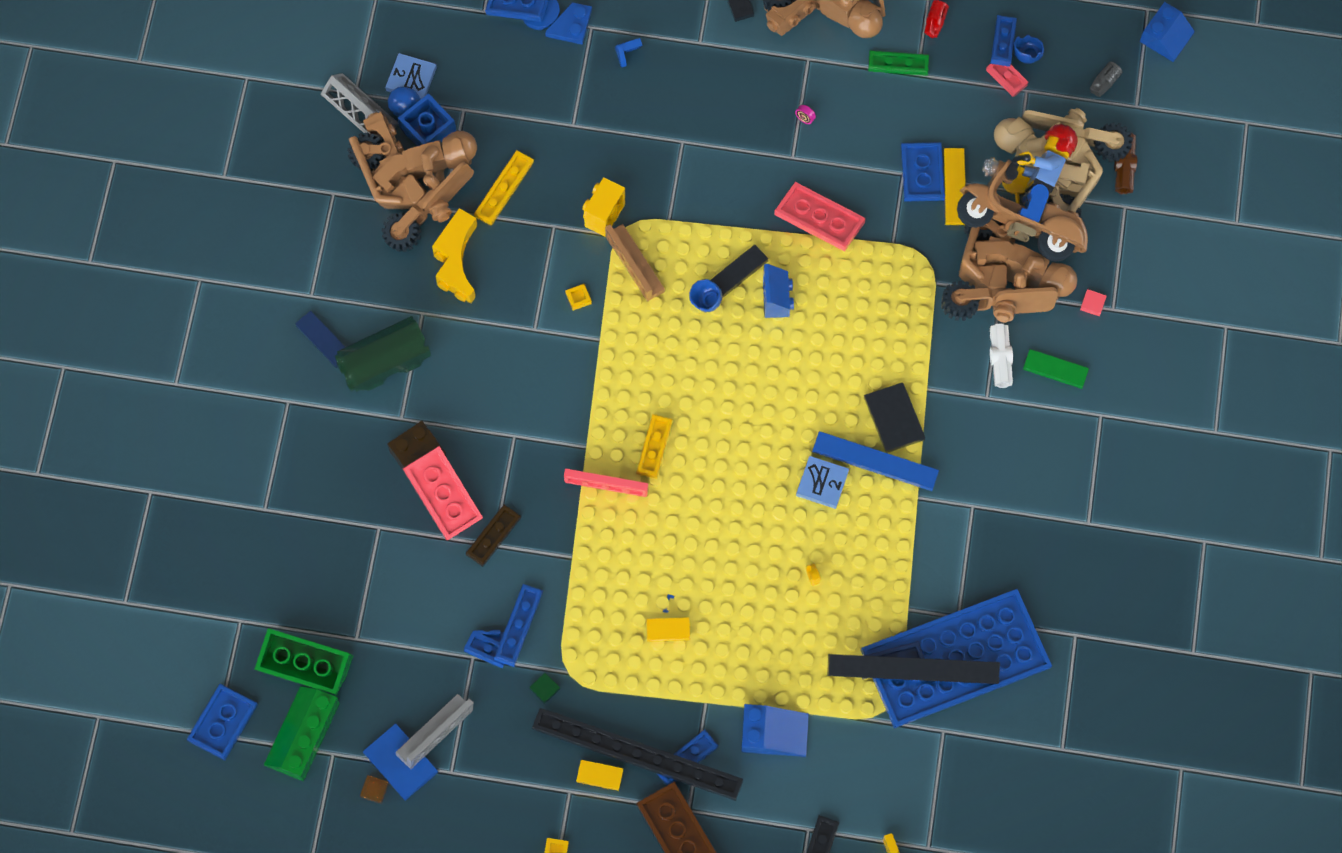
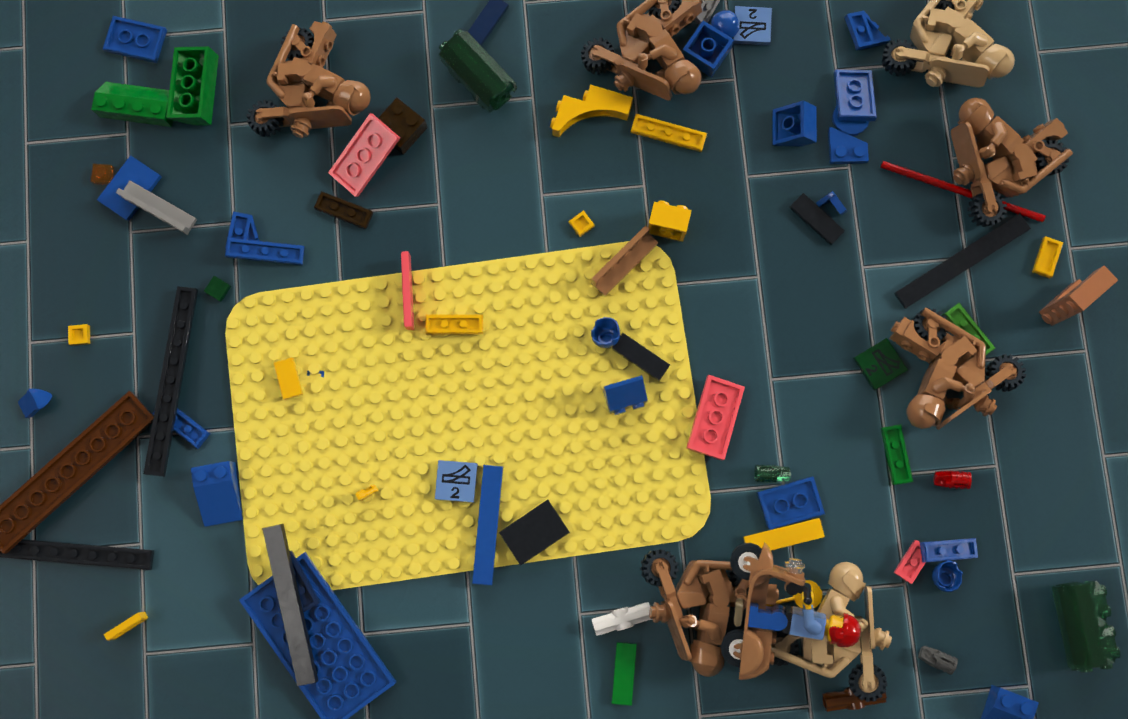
camera: 80 degrees right, 10 degrees up
(336, 545) = (301, 79): none -> medium nougat piece
(533, 64) = (795, 124): none -> blue slope
(599, 775) = (151, 354): yellow tile -> none
(638, 70) = (817, 219): none -> black tile
(804, 53) = (880, 364): none -> dark green tile
(805, 114) = (816, 380): dark pink tile -> none
(889, 180) = (771, 473): none -> clear green hinge
(1093, 302) = (700, 695): coral tile -> none

